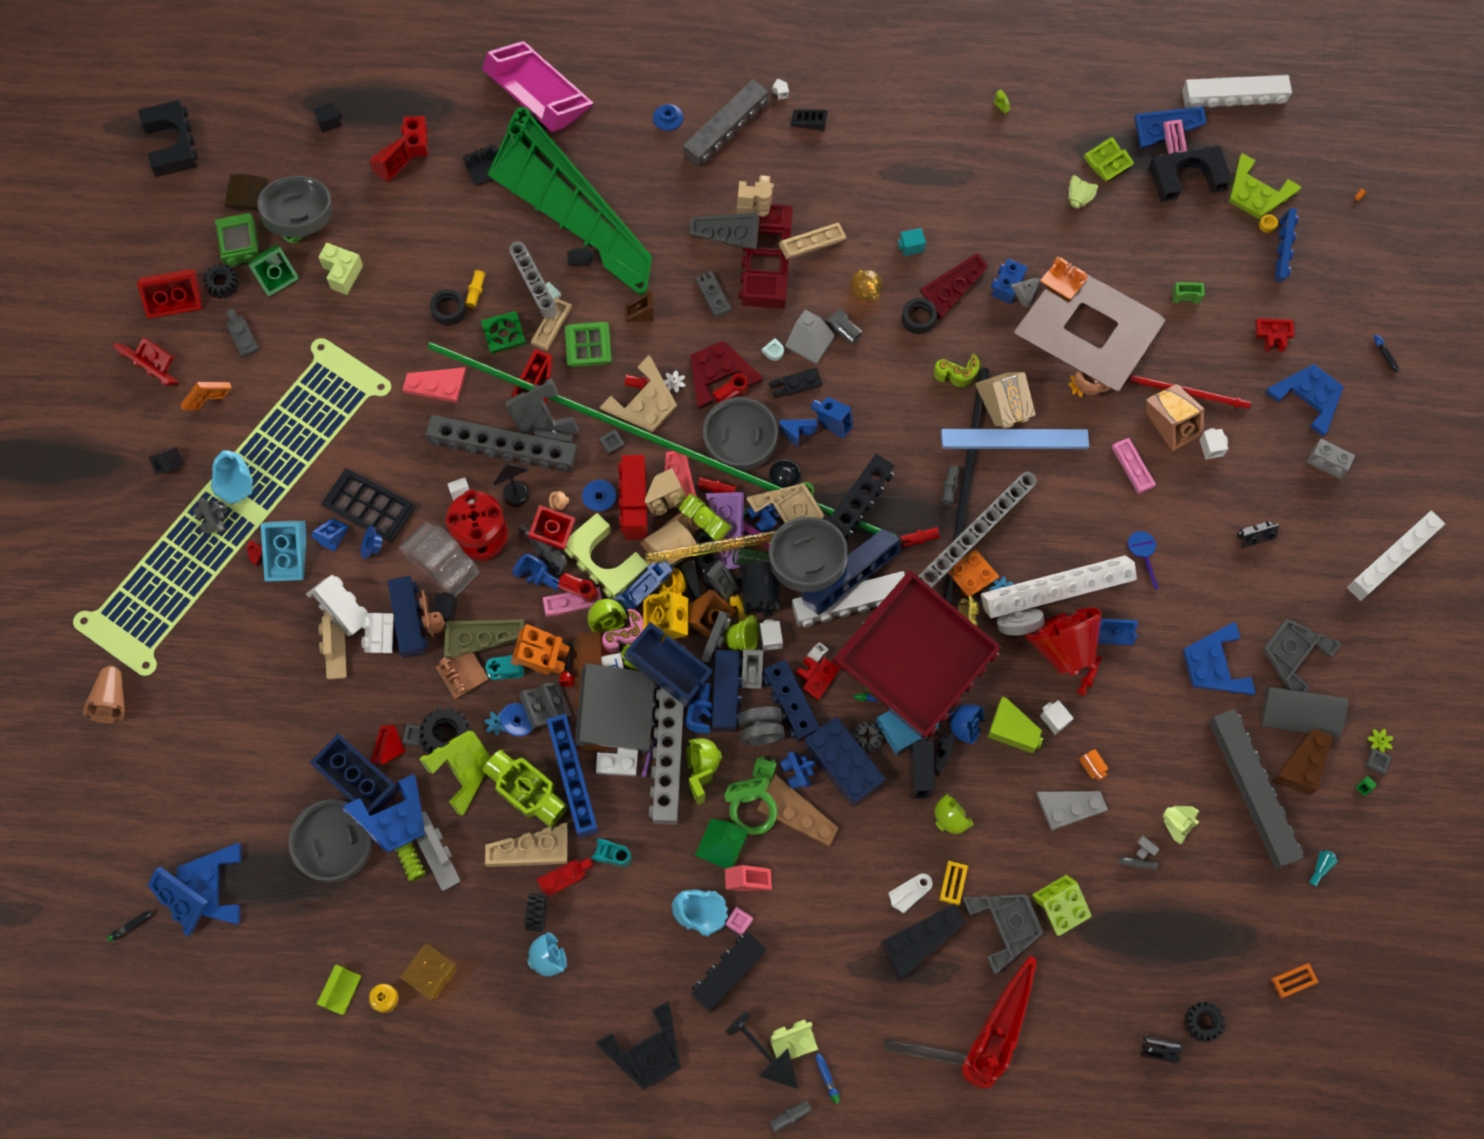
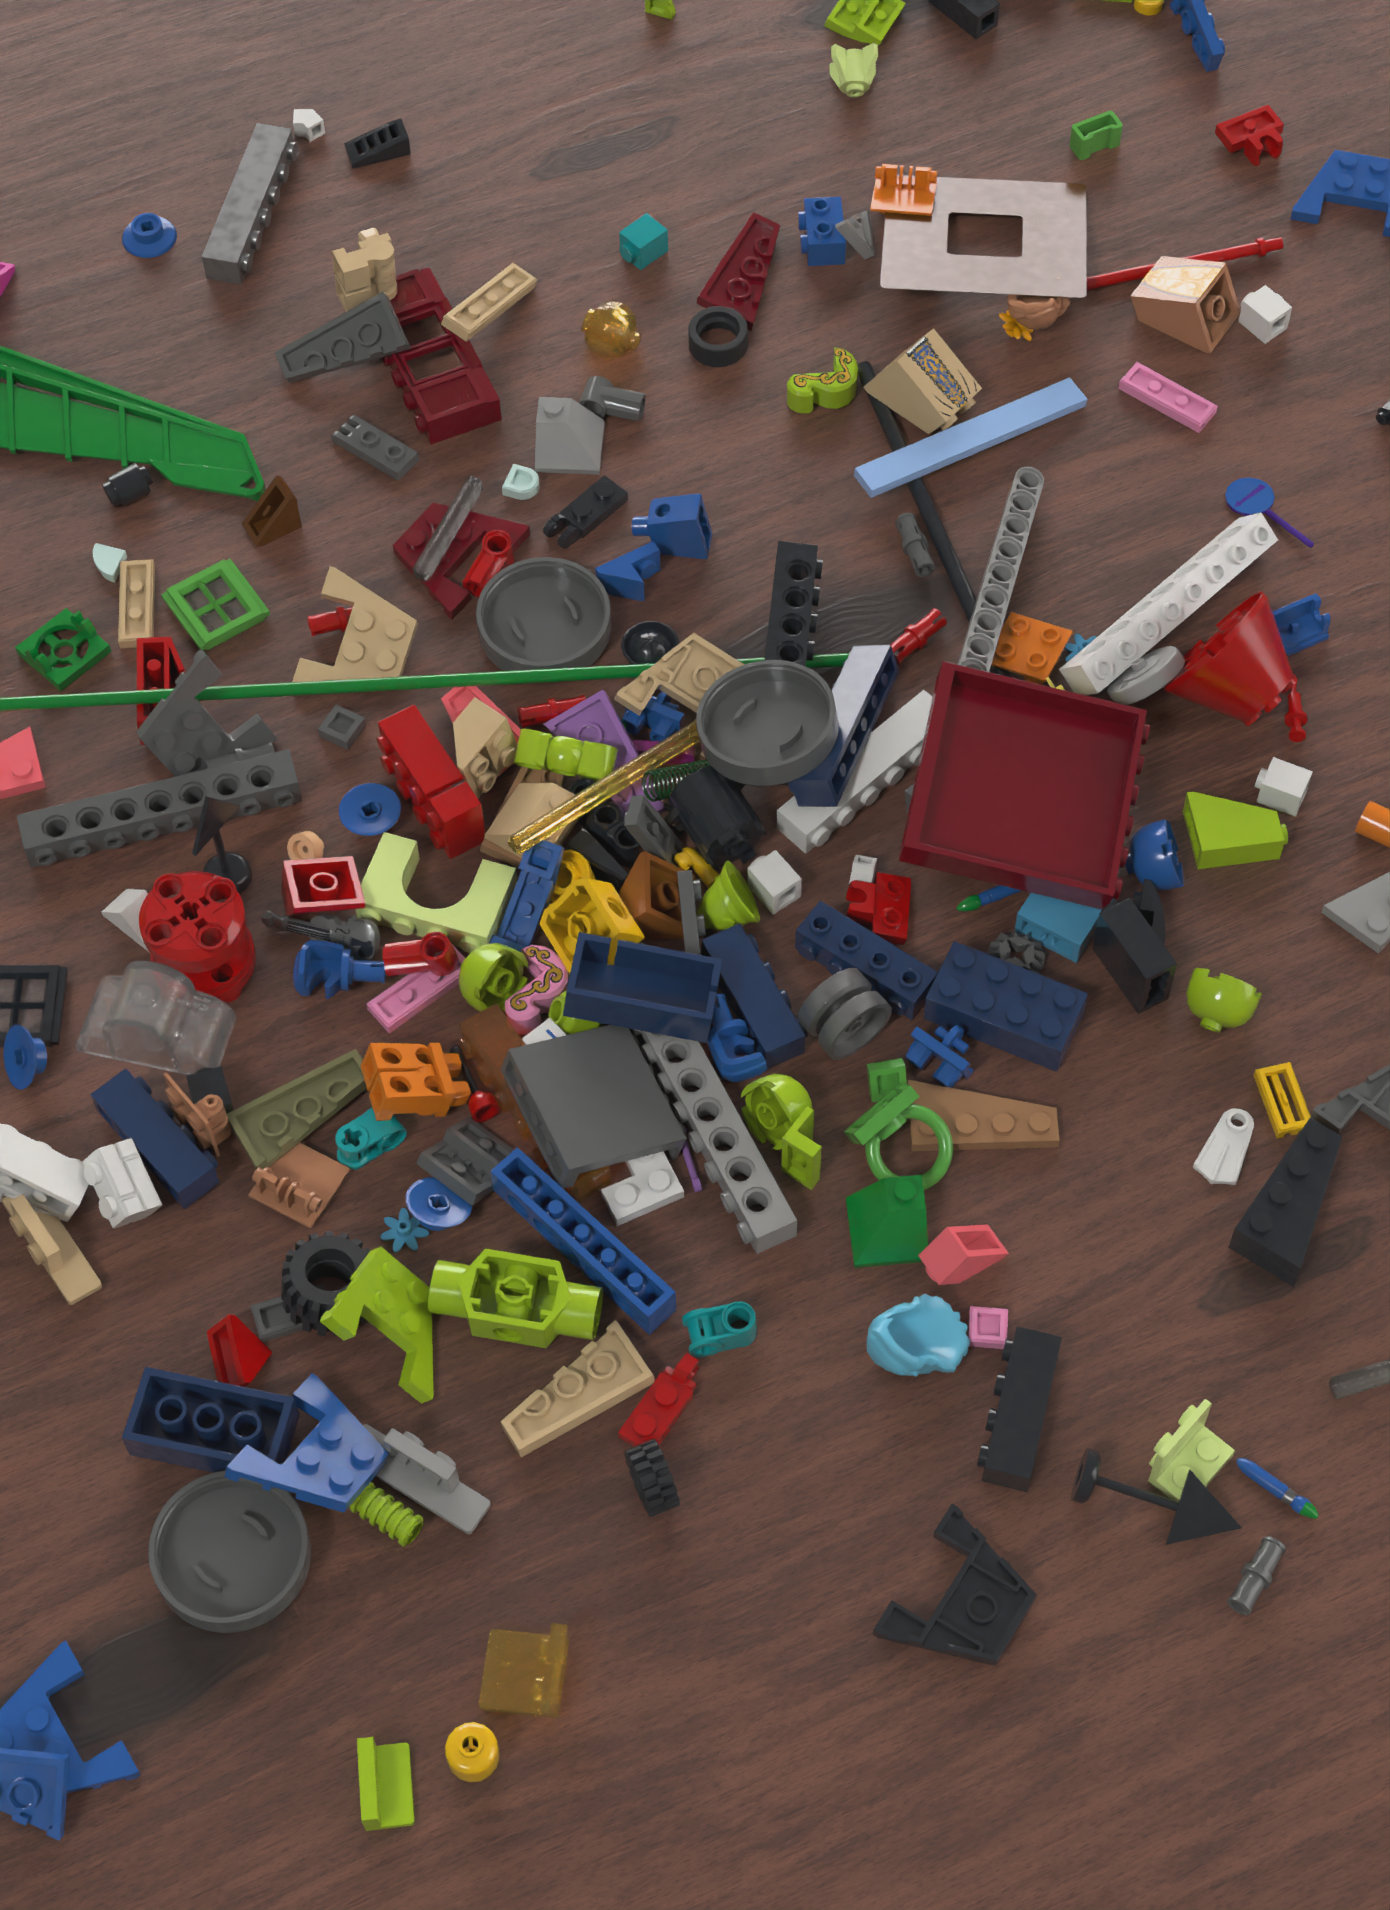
camera: 25 degrees left, 10 degrees down
(534, 286) = (70, 548): light grey beam -> none
(546, 957) = (708, 1540): medium azure cylinder -> none
(674, 381) = (392, 593): white plant -> none
(720, 360) = (447, 528): none -> clear smoke axle
(752, 668) = (776, 939): light grey slope -> none

